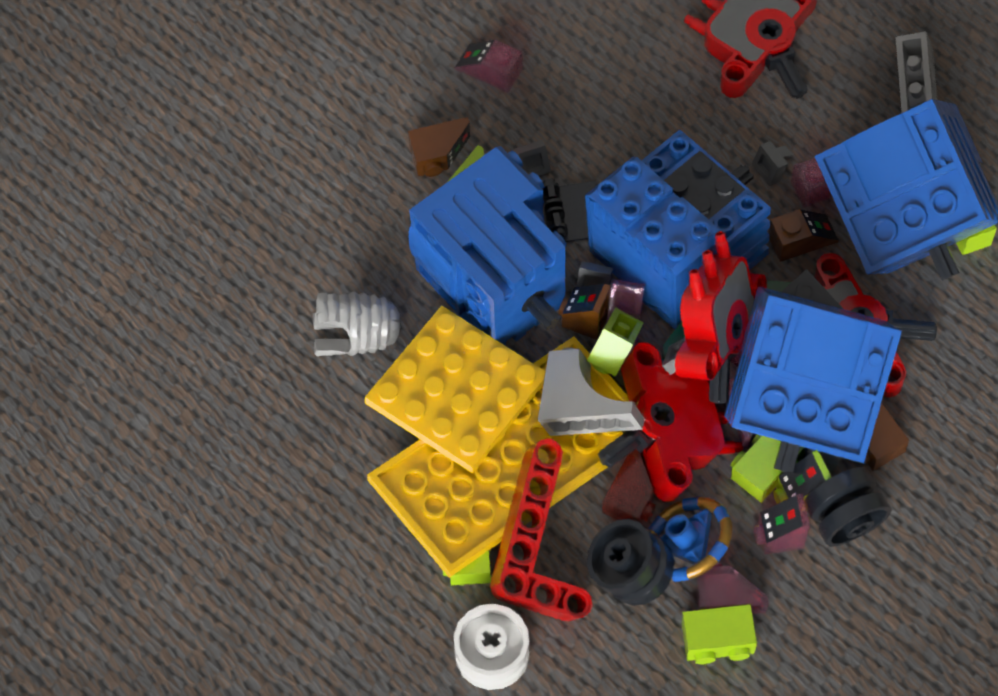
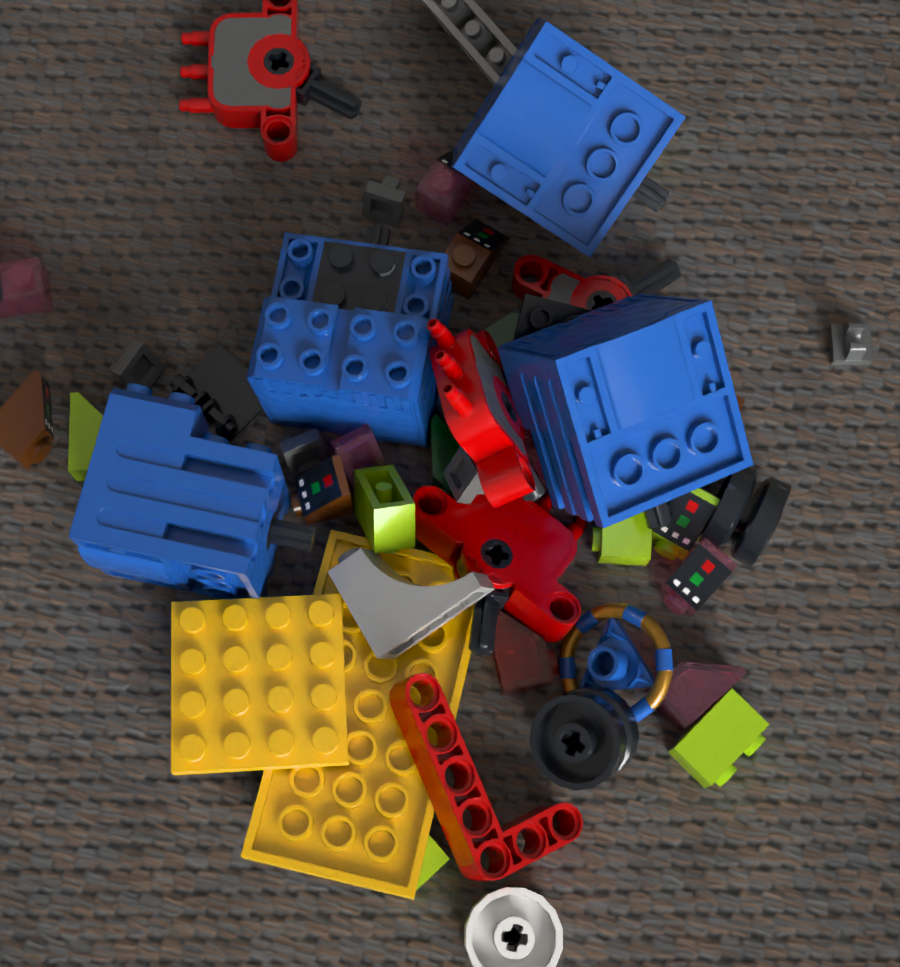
camera: 45 degrees left, 10 degrees up
(369, 321) = (93, 678): light grey hair -> none

